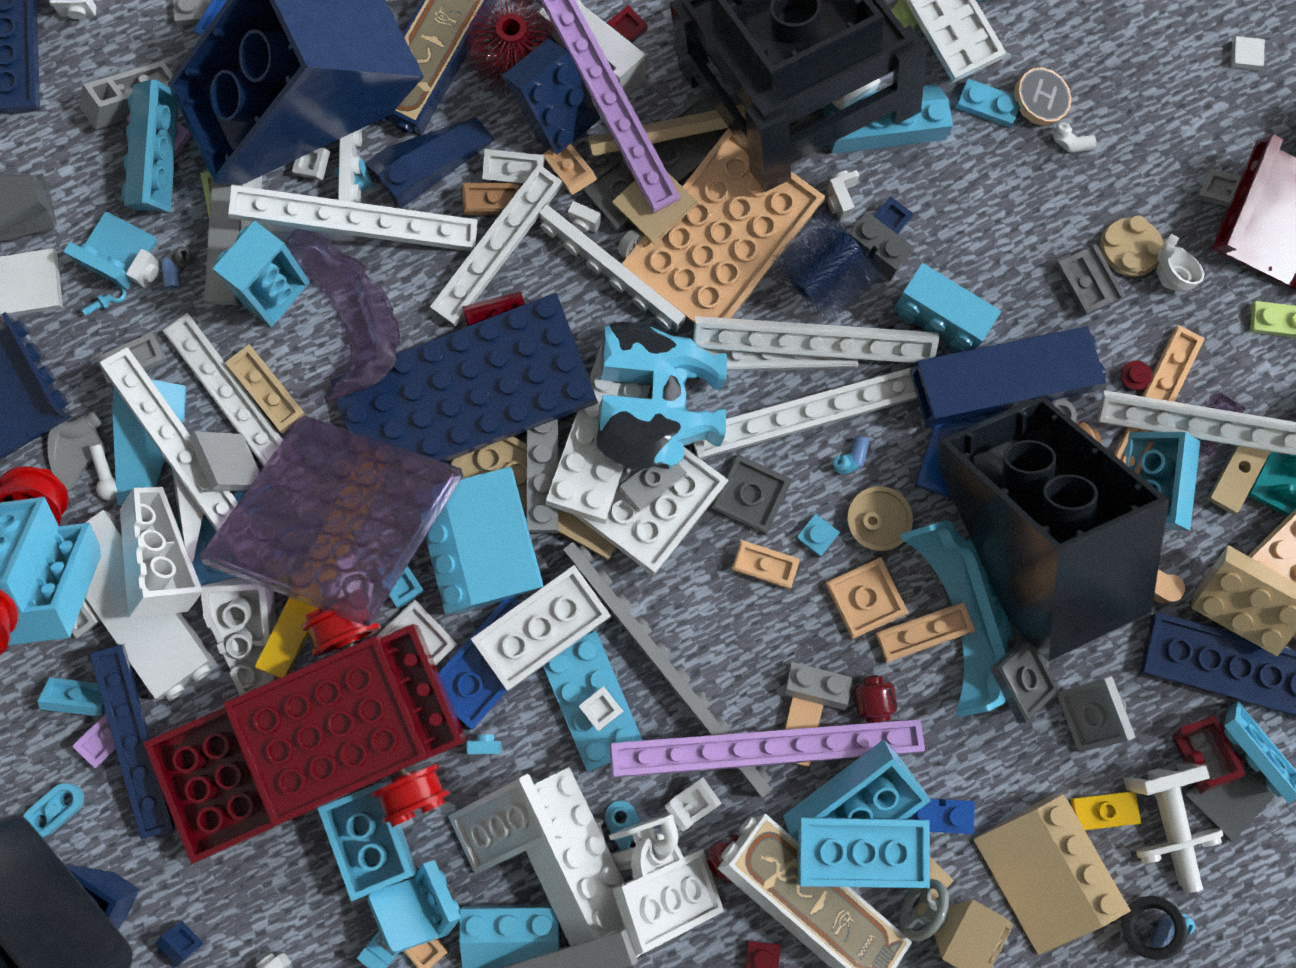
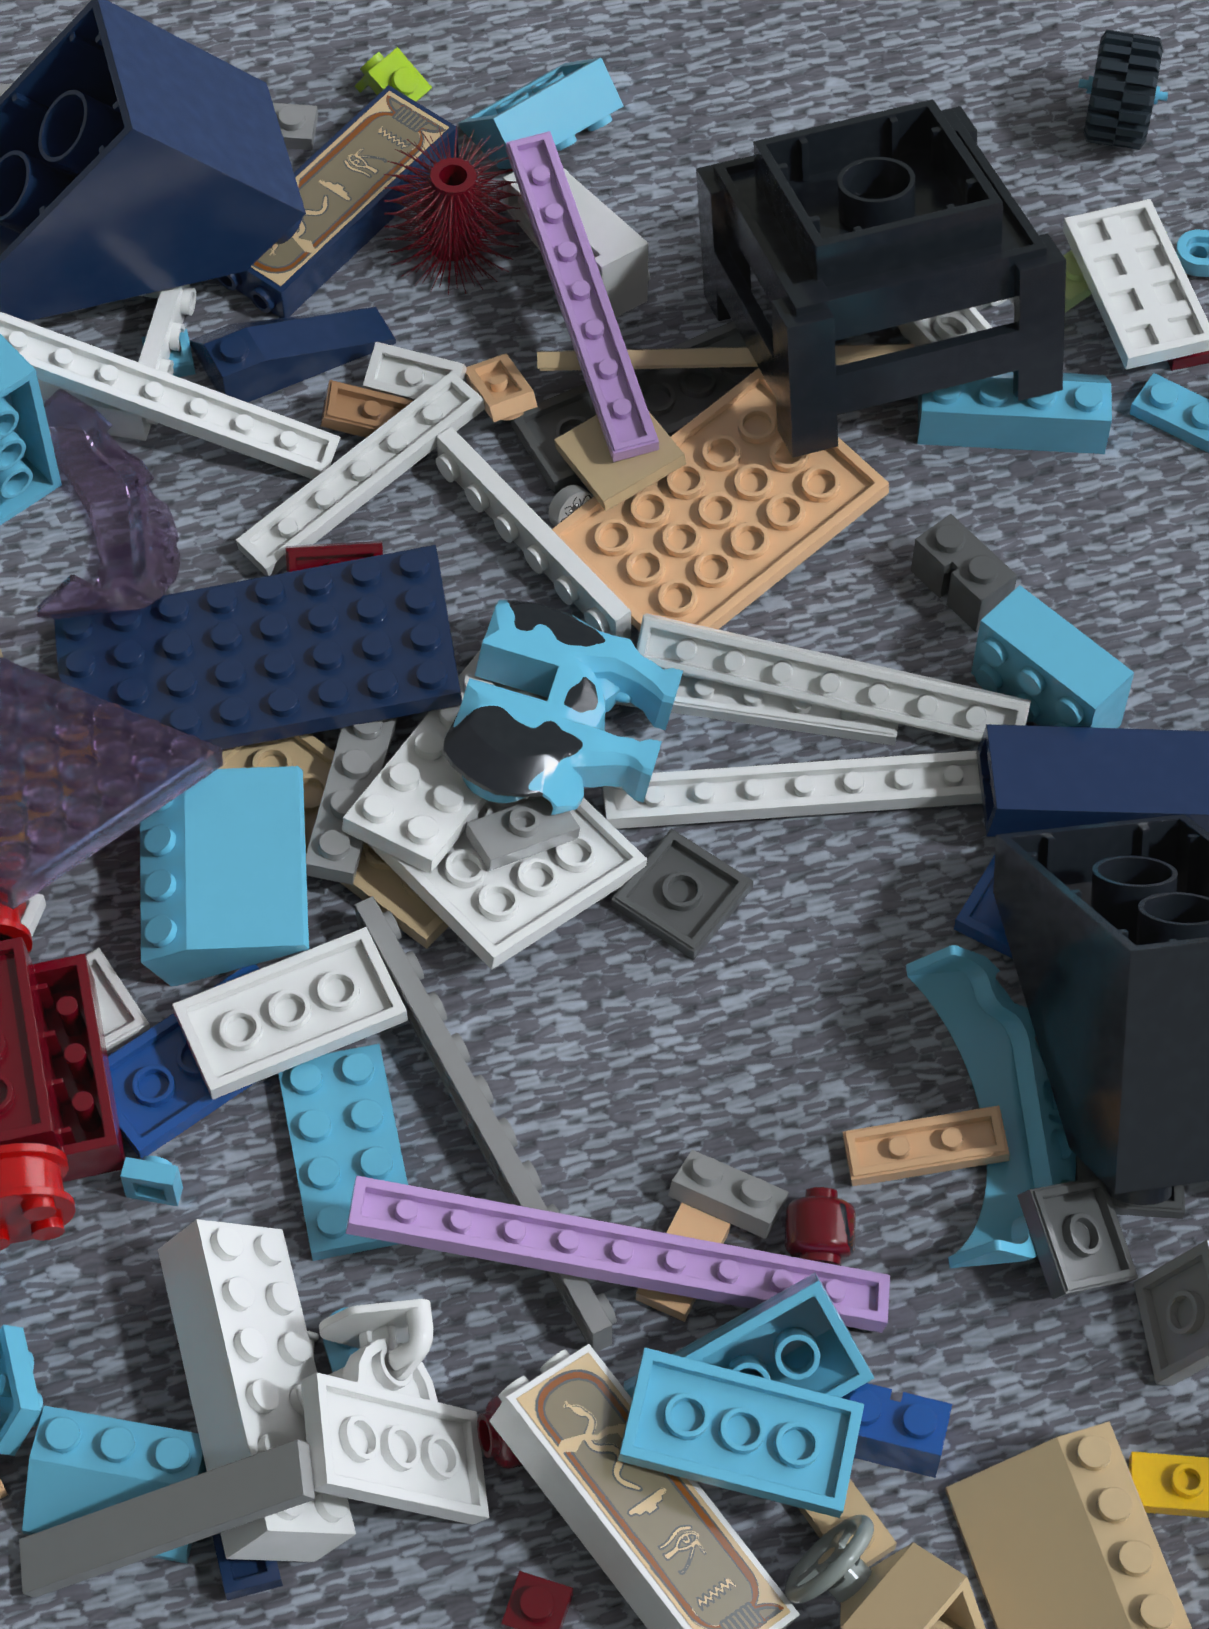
camera: 15 degrees right, 20 degrees down
(313, 164) = (109, 323): white plate -> none
(406, 588) = (85, 923): medium azure plate -> none
(502, 824) = (147, 1279): white plate -> none
(552, 96) = (494, 281): dark blue brick -> none
(584, 217) = (508, 459): white plate -> none
(601, 708) = (356, 1148): white plate -> none
(628, 24) = (642, 218): dark red plate -> none
(692, 804) = (475, 1333): white bracket -> none
(765, 564) = (681, 996): light nougat plate -> none
(817, 535) = (777, 972): medium azure plate -> none
(826, 267) = (868, 574): dark blue piece -> none
(839, 198) = (916, 486): white bracket -> none
(855, 459) = (860, 873): arm -> none
(866, 598) = (838, 1080): light nougat tile -> none
(879, 518) = (872, 961): tan piece -> none
(894, 215) = (1000, 536): dark blue plate -> none

